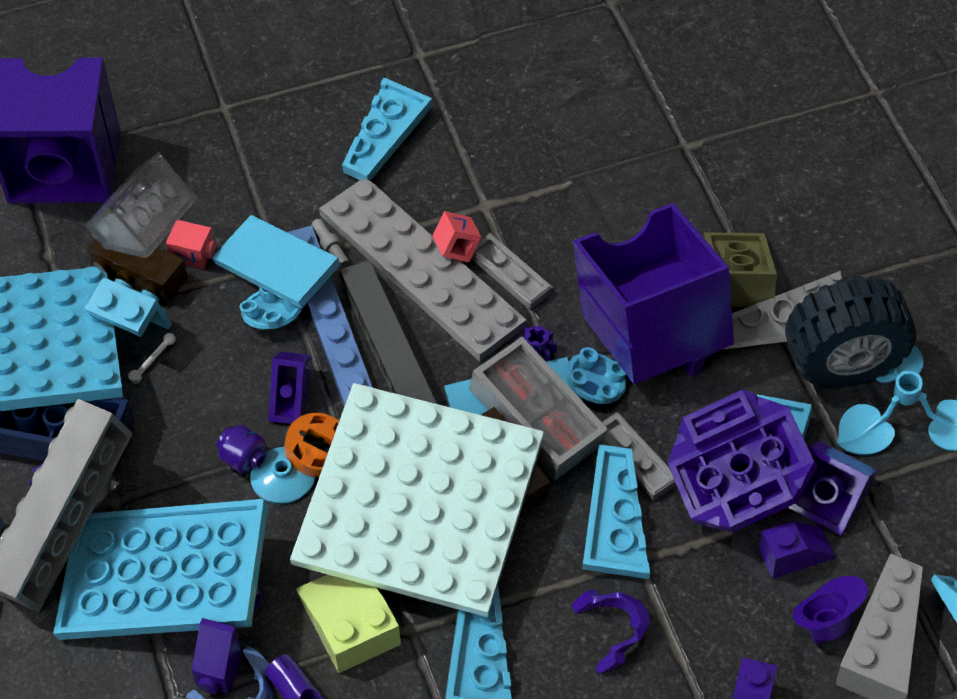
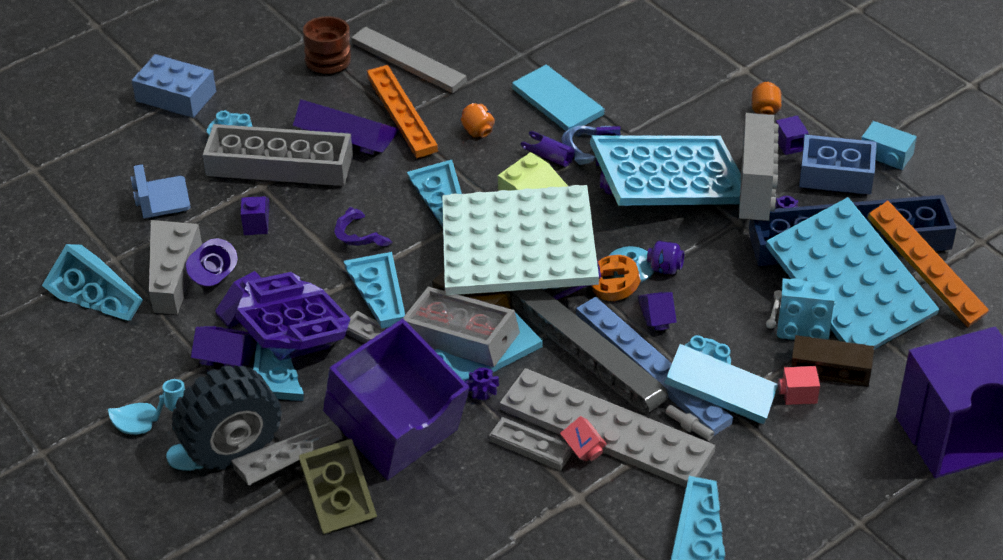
camera: 160 degrees right, 10 degrees down
(142, 209) = (850, 379): clear slope -> none

